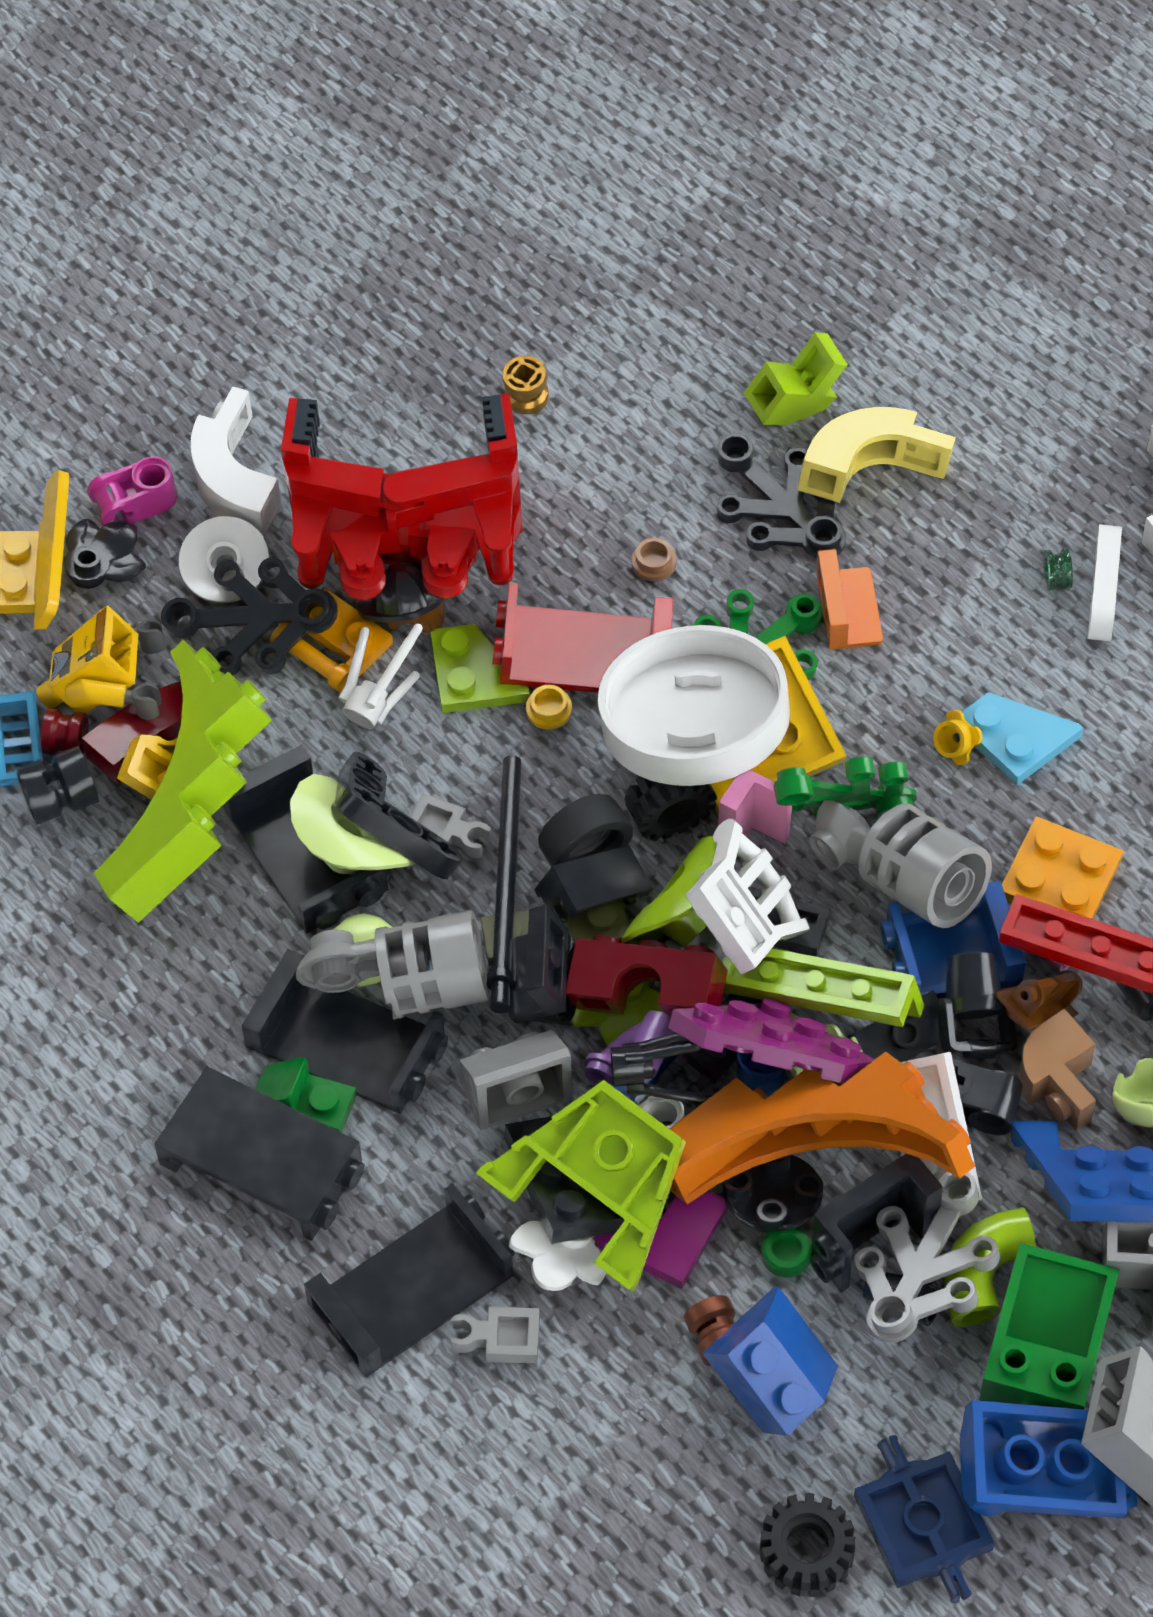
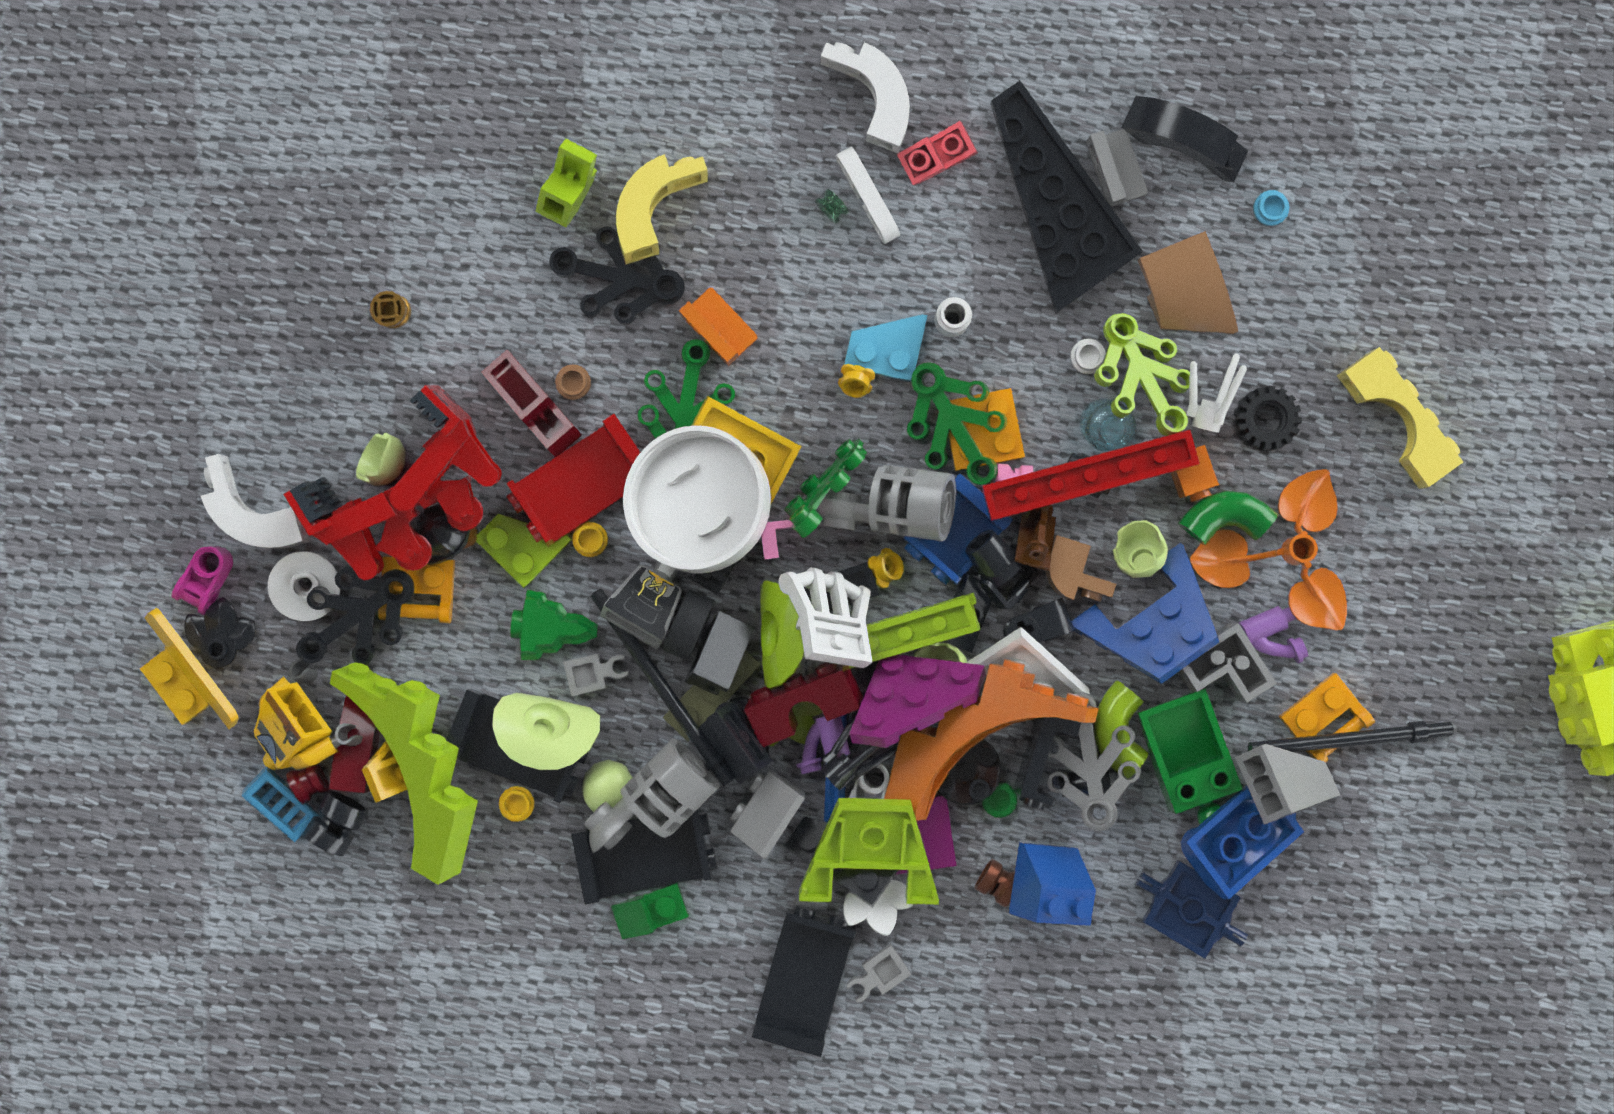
camera: 45 degrees left, 30 degrees up
(254, 898) = (516, 803): none -> yellow plate
(262, 1149) = (657, 970): black panel -> none
(362, 801) = (551, 715): black beam -> none
(367, 702) = (478, 621): white plant -> none
(434, 754) = (547, 626): none -> green rock
(547, 780) = (644, 603): none -> torso
(595, 551) = (531, 403): none -> dark red slope
(815, 1516) = (1154, 987): black tyre -> none
(846, 932) = (886, 567): none -> yellow plate
(1034, 787) = (951, 418): none -> green plant
(1110, 738) = (960, 309): none -> white brick

